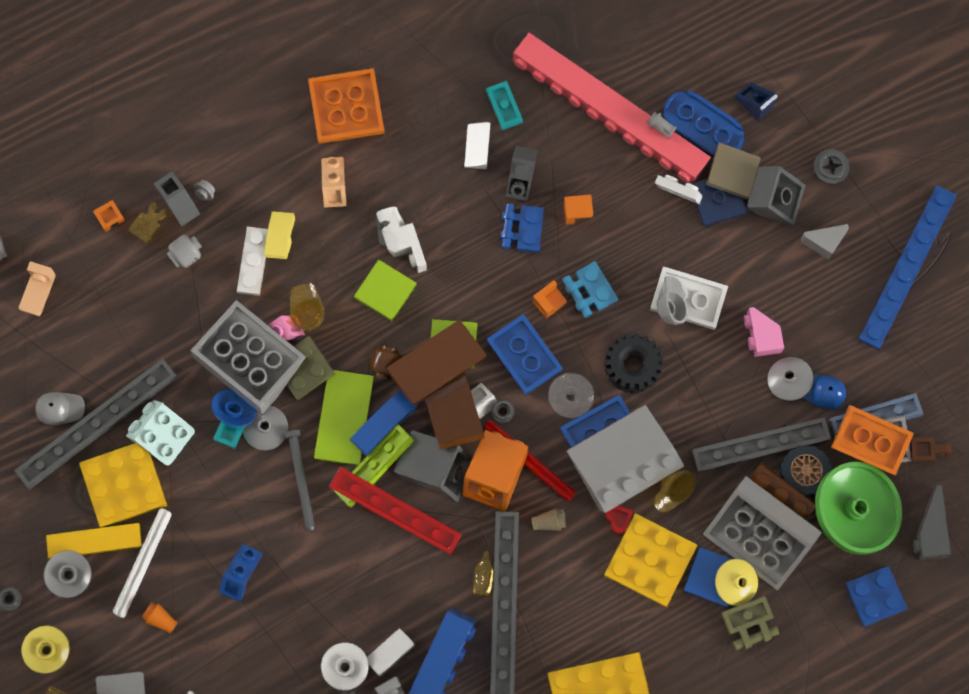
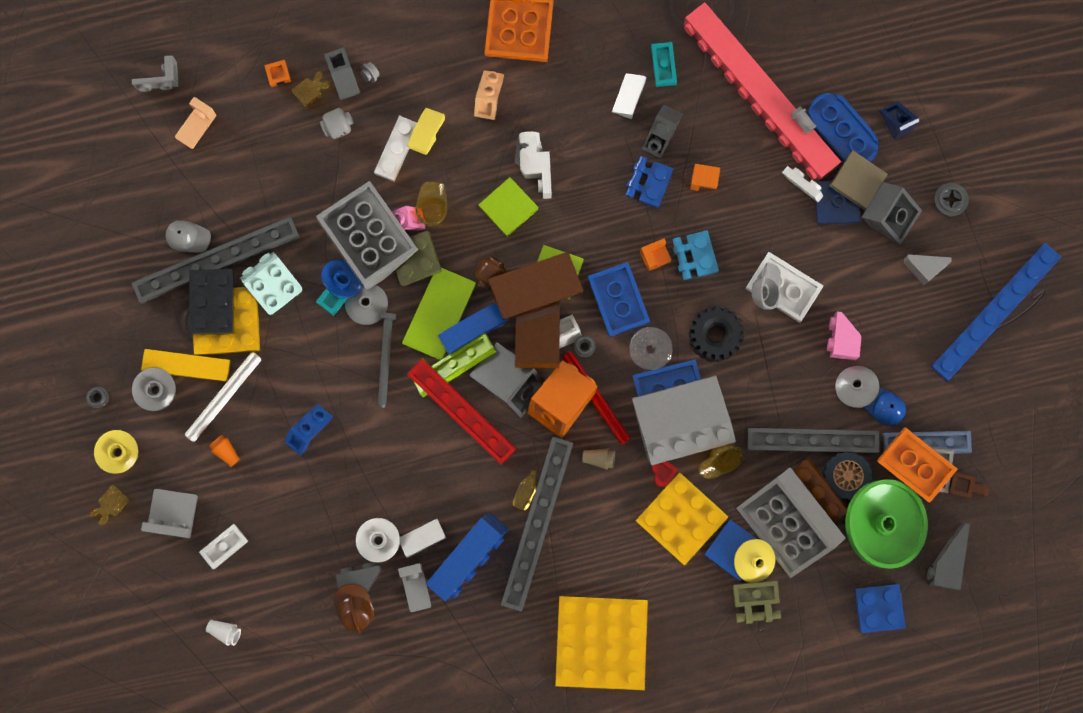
camera: 20 degrees right, 5 degrees up
(104, 467) = (211, 302): none -> black plate

